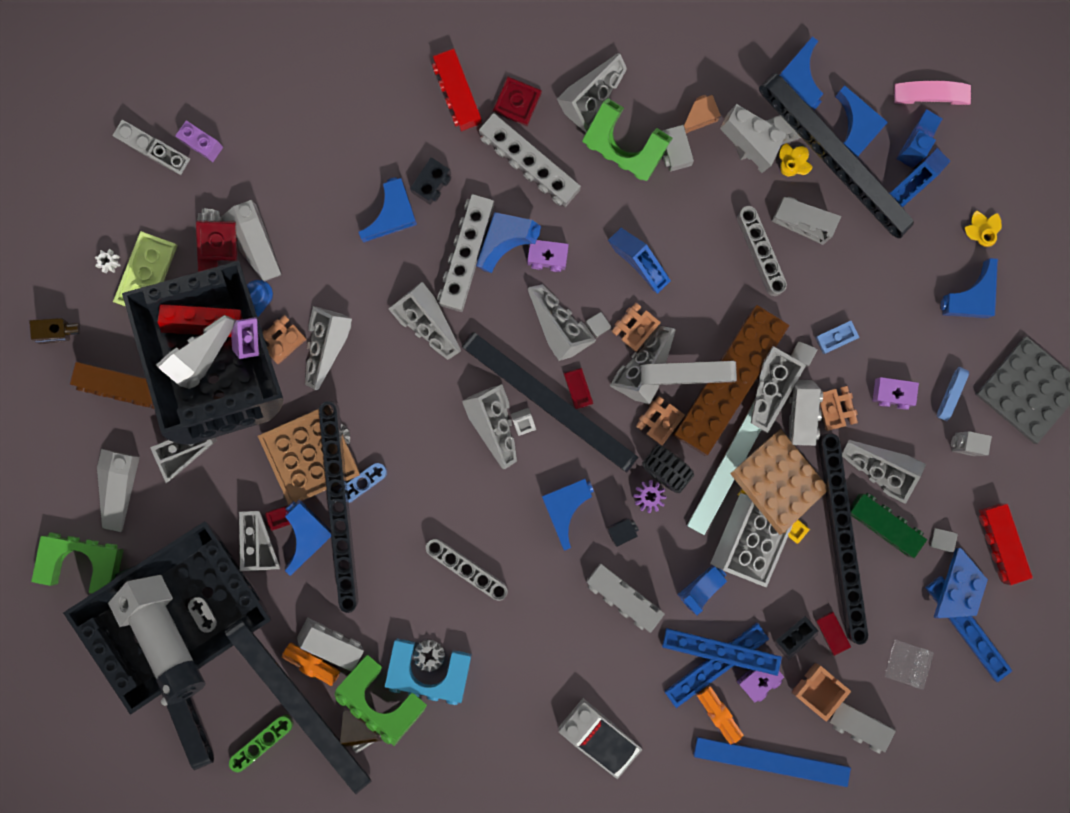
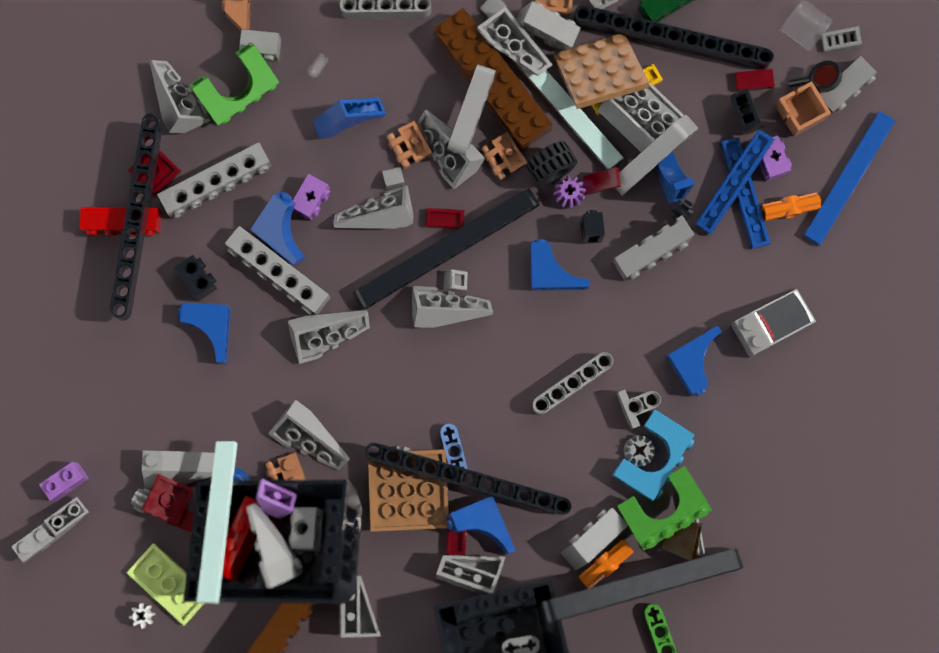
camera: 70 degrees left, 5 degrees down
(204, 294) = (217, 522): none -> light aqua tile
(239, 381) = (312, 538): none -> light grey brick
(453, 101) = (136, 225): none -> black beam
(471, 643) = (642, 404): none -> light grey tile
(530, 672) = (689, 362): none -> blue arch
(671, 523) = (602, 181): none -> dark red tile
(674, 611) = (682, 208): none -> black gear
(678, 210) = (317, 66): none -> clear pin
(718, 566) = (656, 152): none -> light grey beam
(862, 701) = (824, 75): none -> piece
(916, 719) = (842, 46): none -> light grey slope

